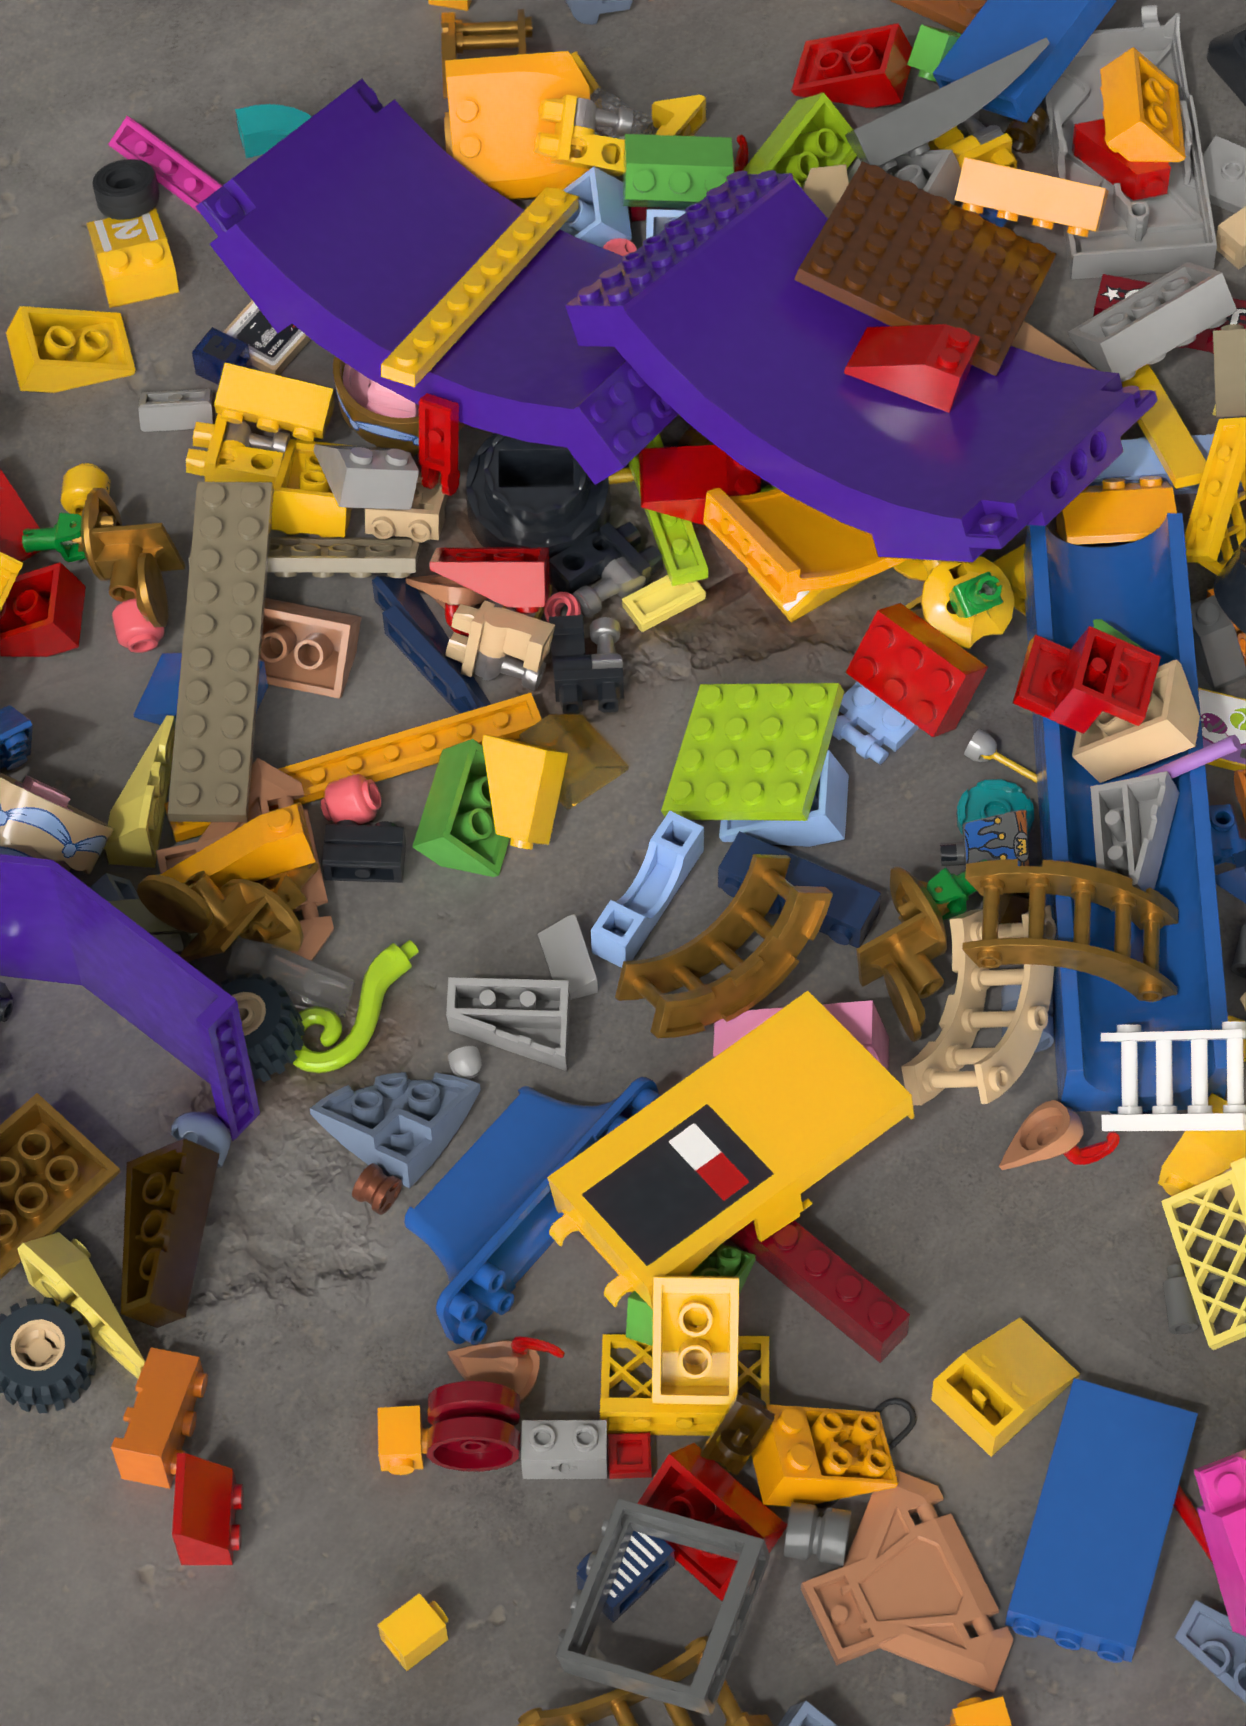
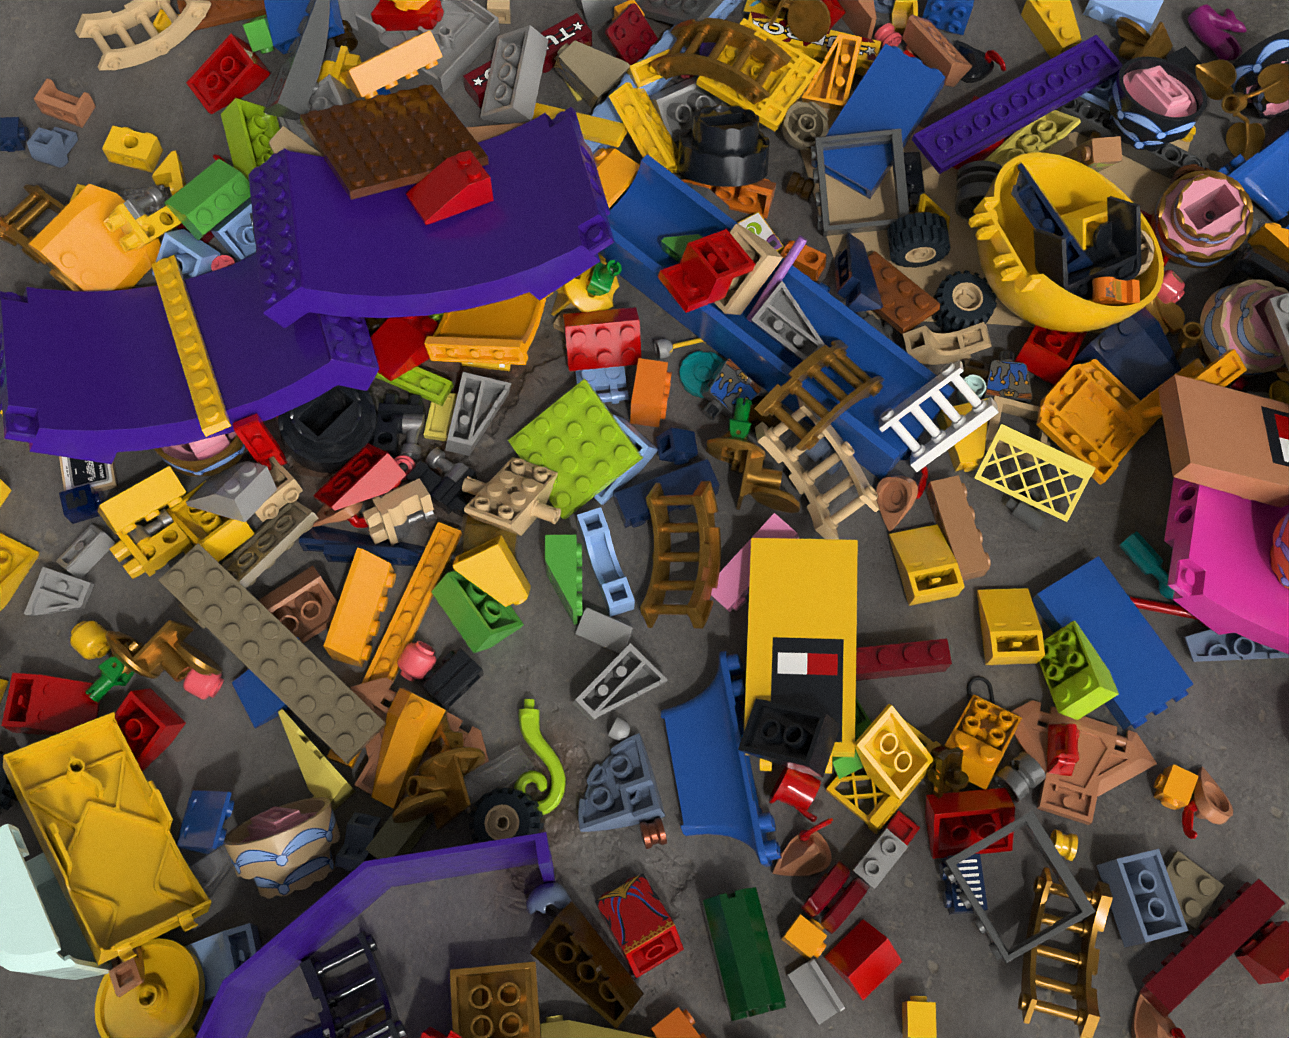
camera: 55 degrees left, 10 degrees up
(106, 422) = (57, 593): none -> light grey wing
(256, 1255) = (639, 925): none -> red slope
(320, 1378) = (743, 953): none -> dark green brick
(349, 1501) = (815, 991): none -> light grey panel
(354, 695) = (359, 609): none -> light orange slope
(434, 1529) = (864, 958): none -> red slope
(567, 1294) = (796, 790): none -> red hat
(596, 854) = (561, 562): none -> bright green slope
(600, 1205) = (790, 736): none -> black slope
(627, 733) = (513, 496): none -> tan slope
(670, 61) = (132, 148): none -> yellow brick
(695, 620) = (474, 410): none -> light grey wedge
(779, 1648) = (1065, 844): none -> yellow wheel
(867, 852) = (677, 446): none -> dark blue brick
(898, 1553) = (1062, 748): none -> red piece
(900, 770) = (650, 393): none -> orange brick
(988, 1232) = (926, 565): none -> yellow slope
(1008, 1496) = (1075, 673): none -> lime slope
(1075, 1234) = (957, 525): none -> medium nougat brick

